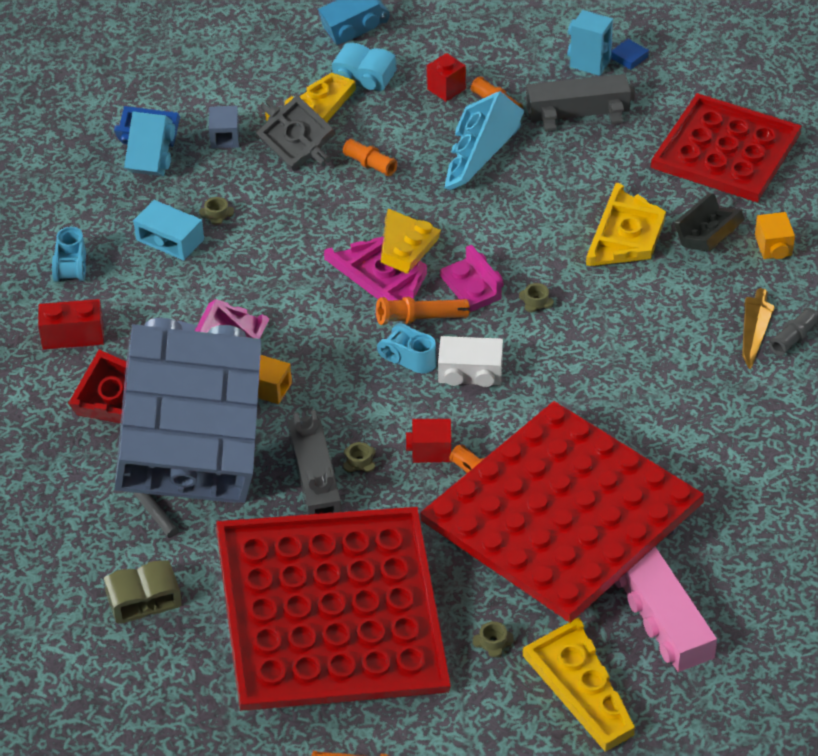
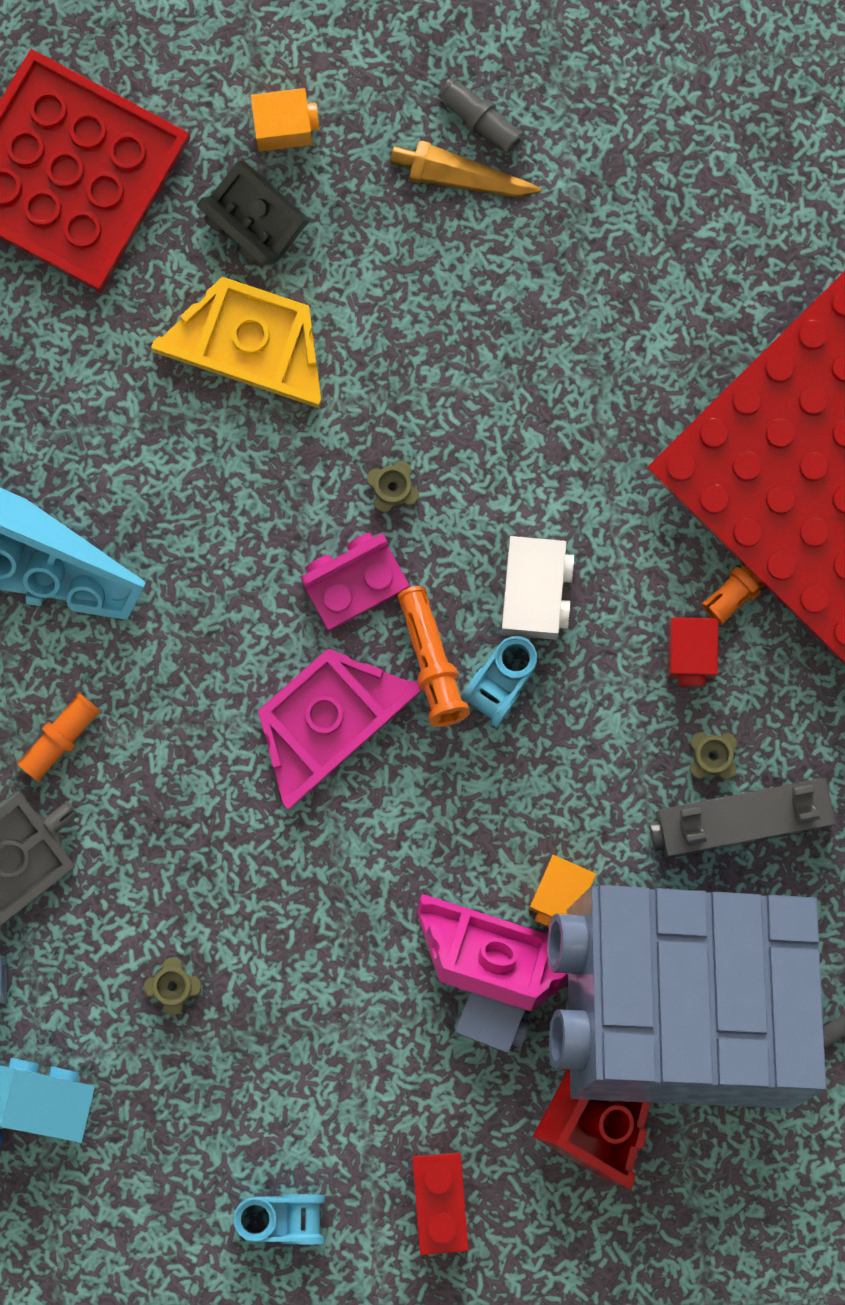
camera: 90 degrees left, 35 degrees up
(168, 229) = (223, 1059): medium azure brick -> none
(406, 240) = (278, 677): yellow wing -> none

